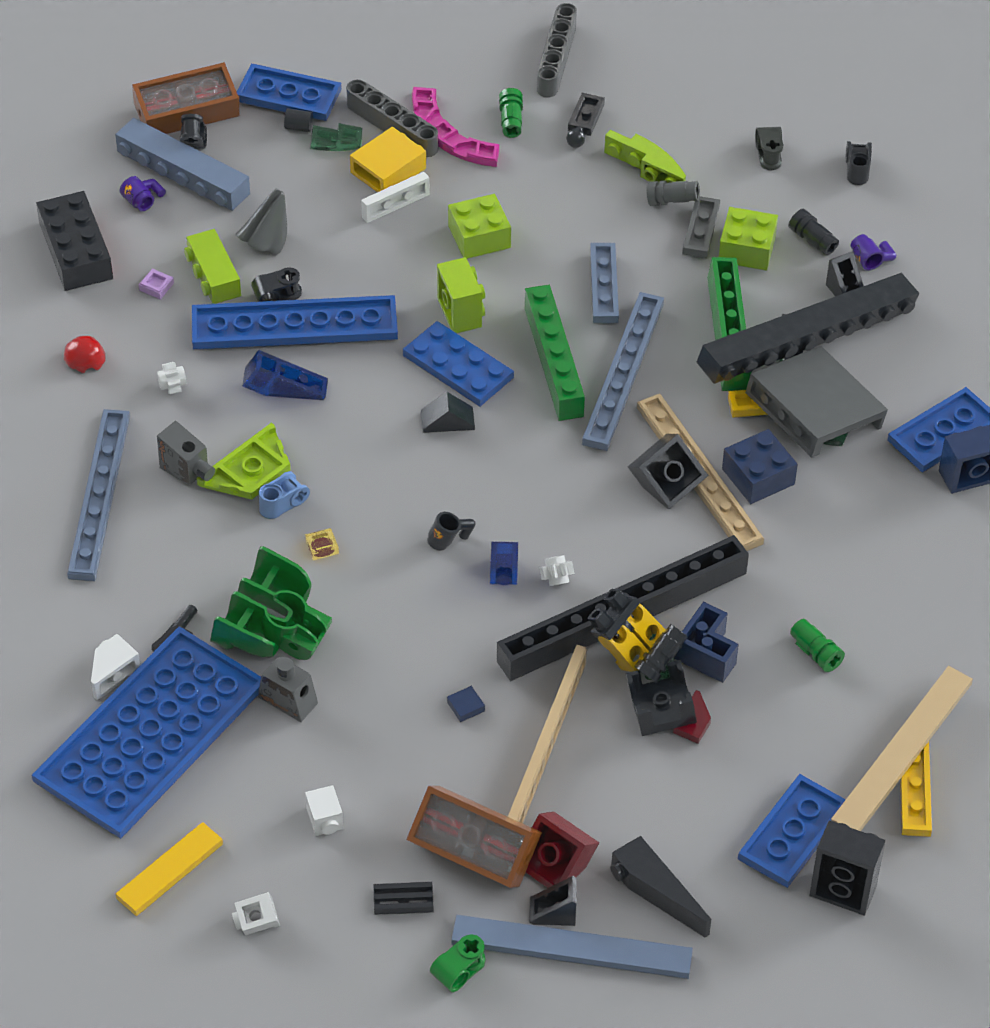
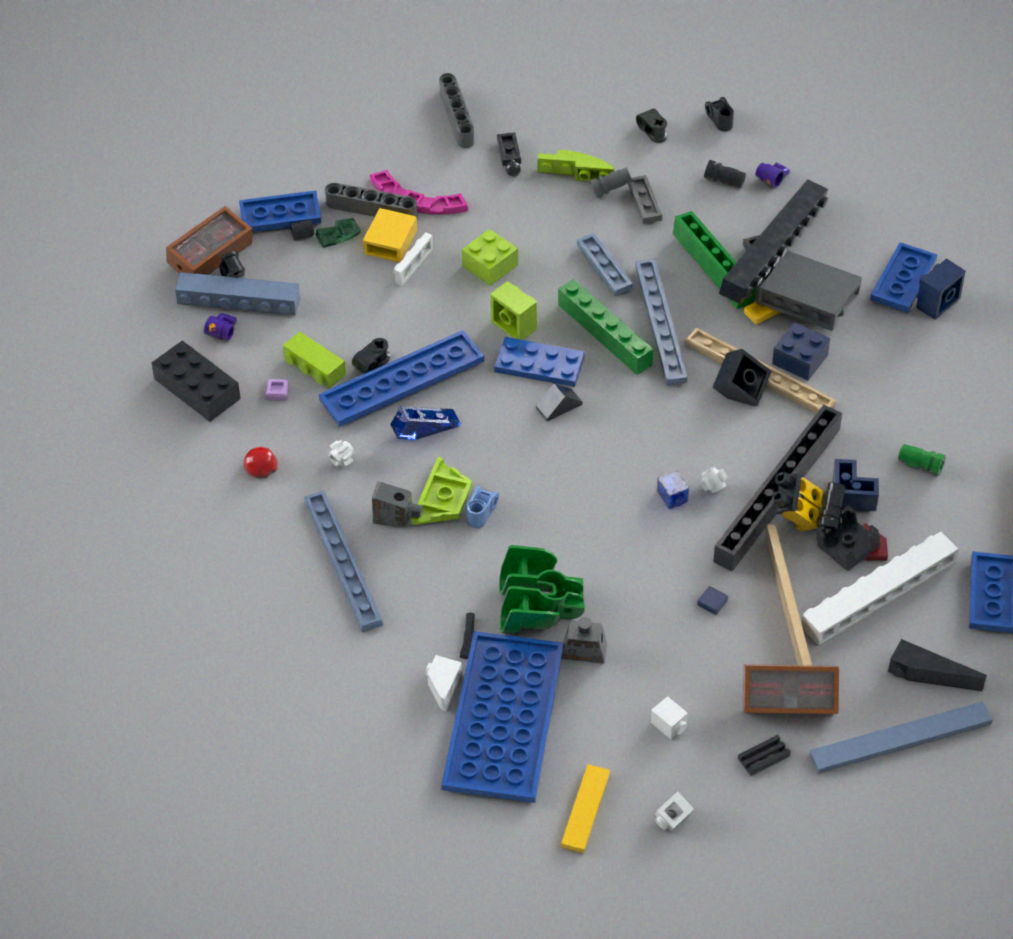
camera: 25 degrees left, 0 degrees up
(268, 225) = (335, 313): dark grey hat -> none
(322, 544) = (531, 529): clear yellow tile -> none
(446, 528) = (618, 482): black piece -> none
(459, 962) = (836, 783): green piece -> none
(511, 111) = (453, 164): green axle -> none
(555, 904) = (874, 711): black slope -> none
(561, 850) = (854, 675): dark red slope -> none
(662, 769) = (879, 588): none -> white brick
(748, 237) = (684, 194): lime brick -> none
(843, 274) = (768, 198): black slope -> none

